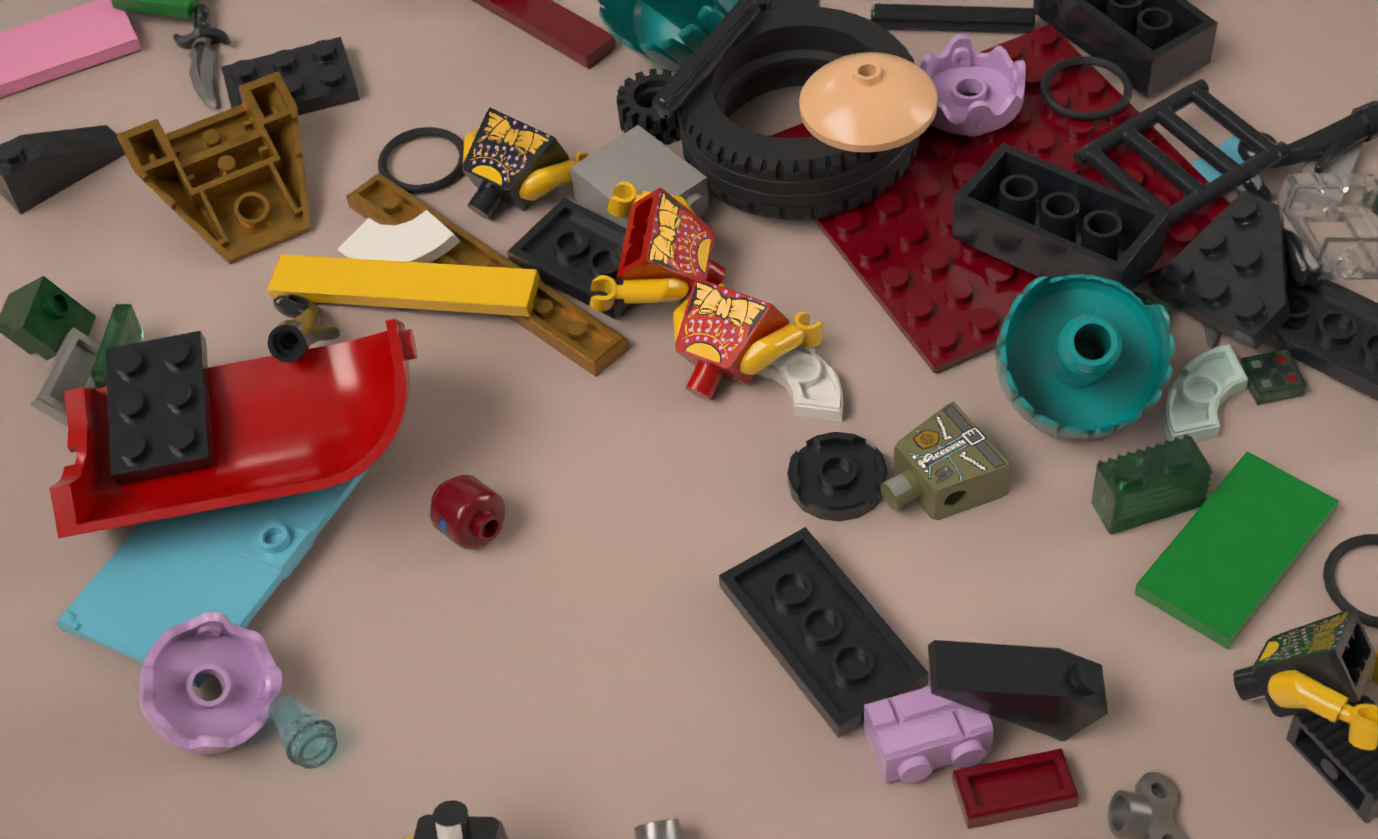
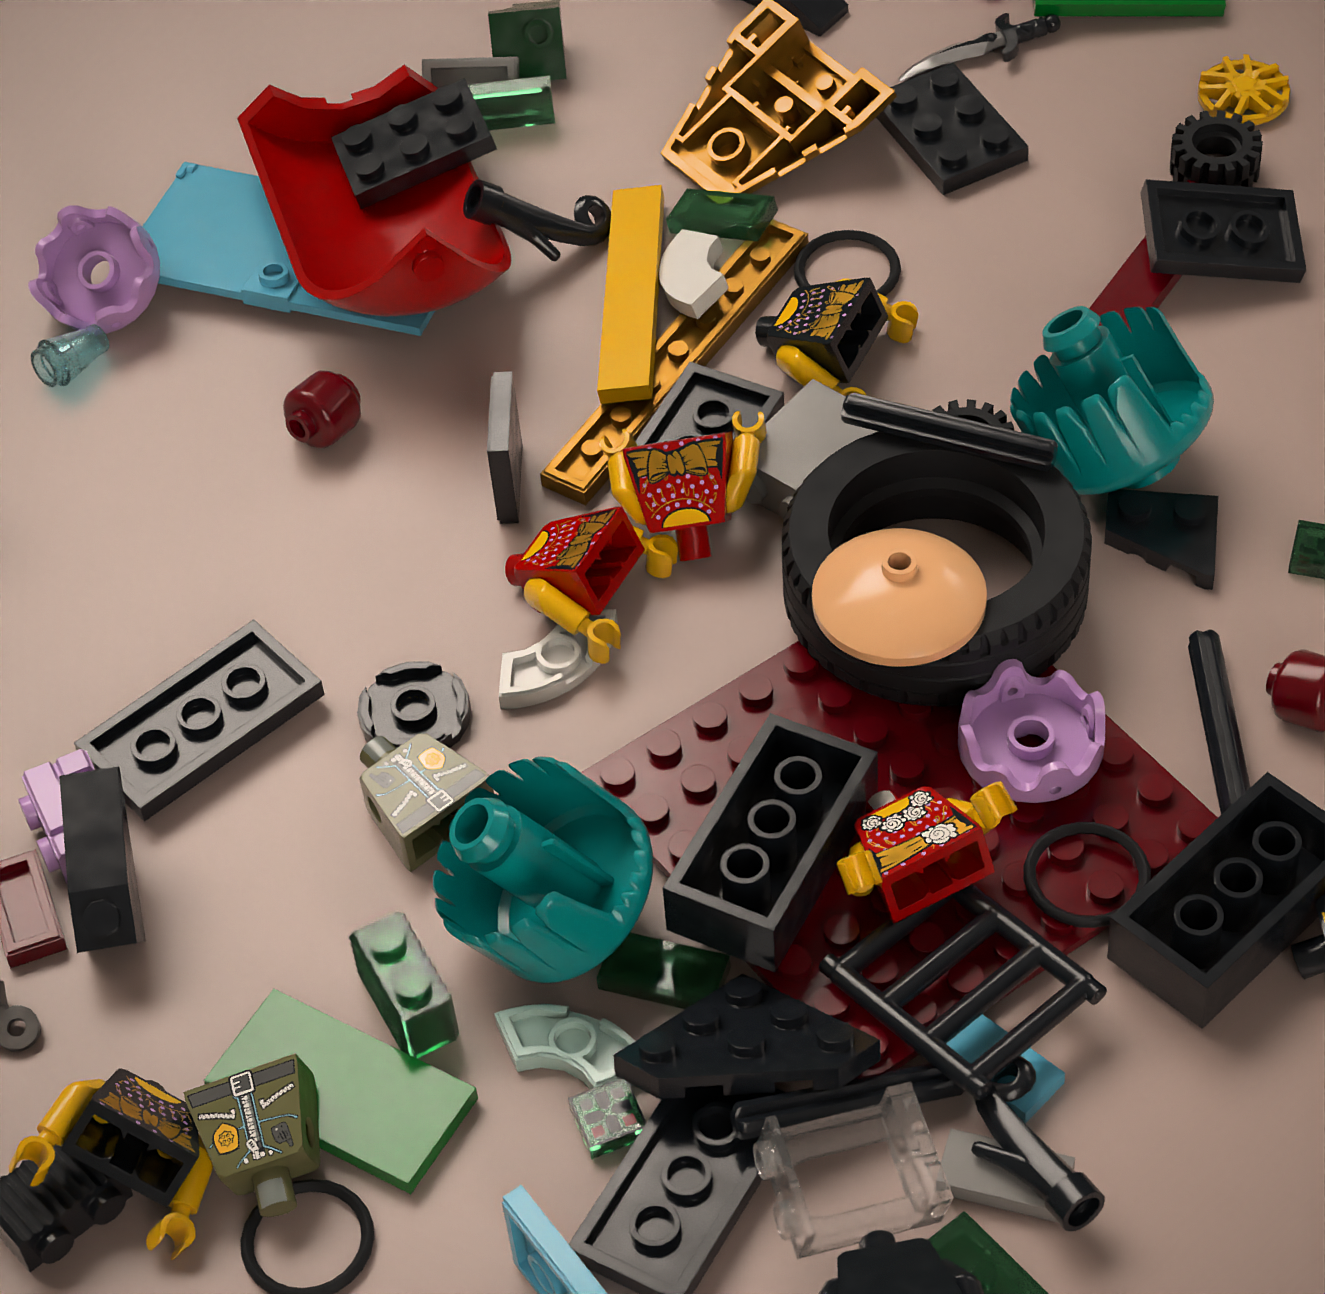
camera: 80 degrees right, 0 degrees up
(333, 219) = (723, 214): none -> clear green tile
(580, 365) = (504, 447): none -> tile
(1078, 134) = (922, 846): none -> torso
(1298, 580) = (260, 1130): none -> olive torso

